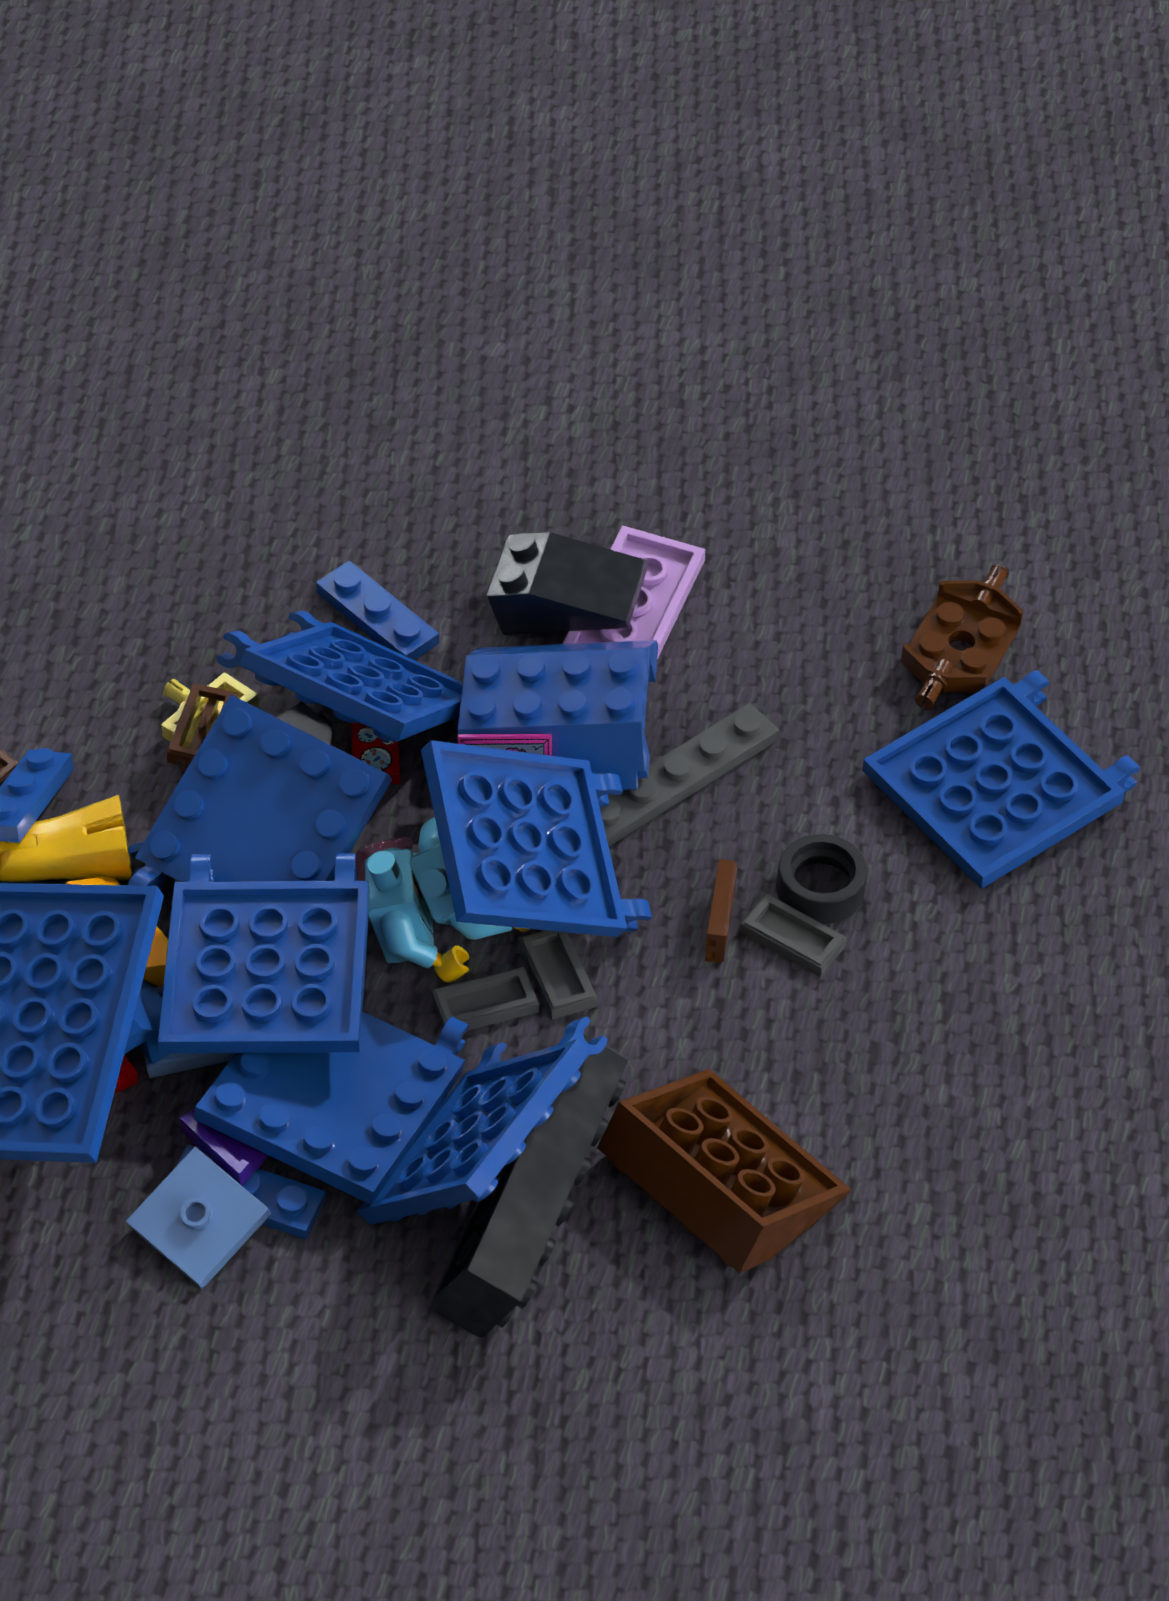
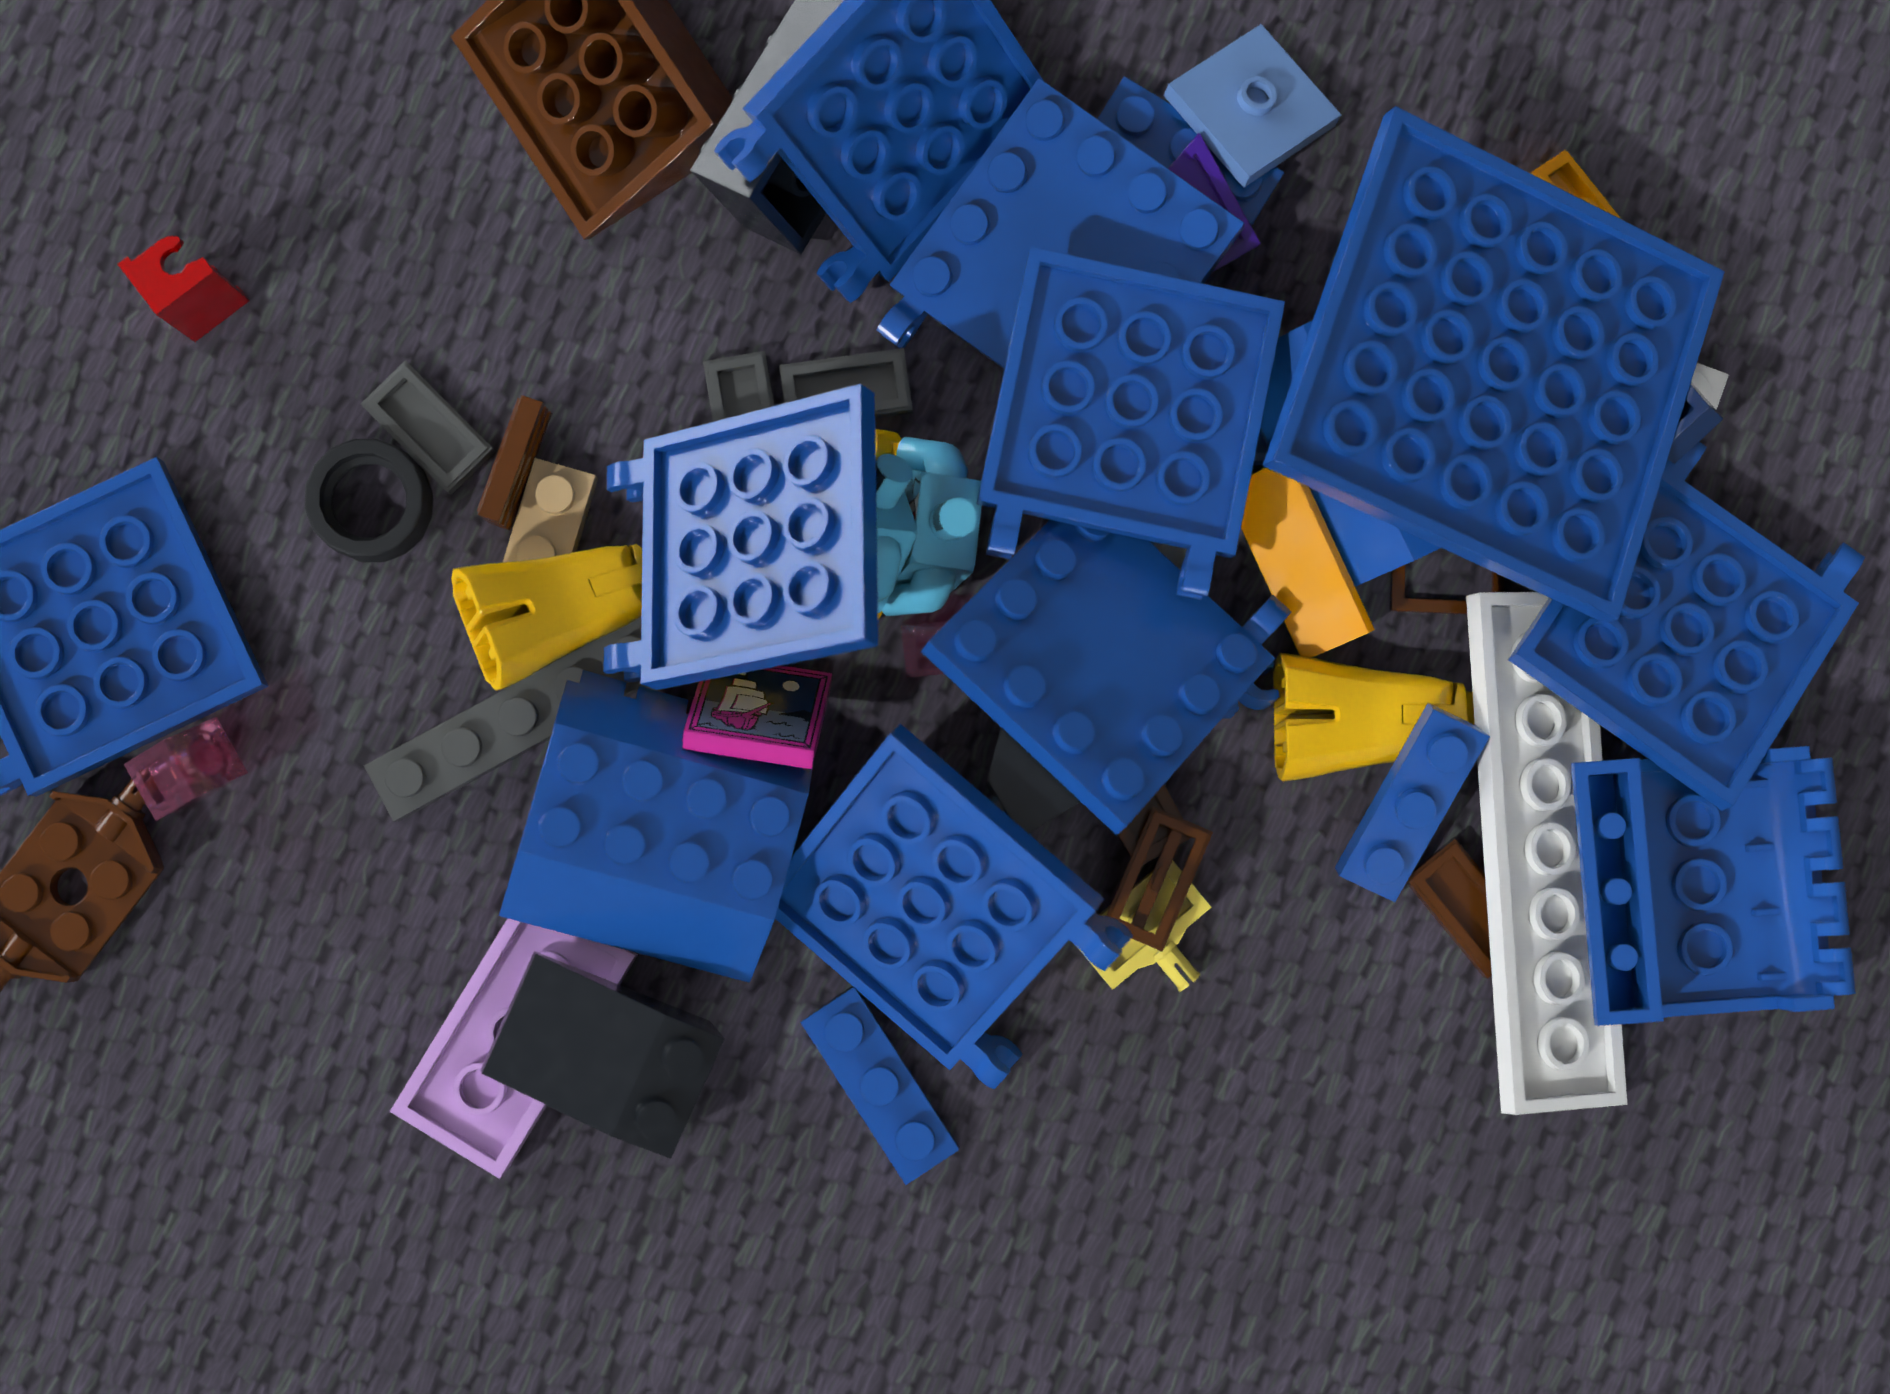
camera: 165 degrees left, 35 degrees up
(670, 813) = (545, 607): none -> yellow piece
(687, 877) = (551, 512): none -> tan plate
(897, 699) = (185, 768): none -> clear pink brick
(993, 963) = (188, 300): none -> red hinge

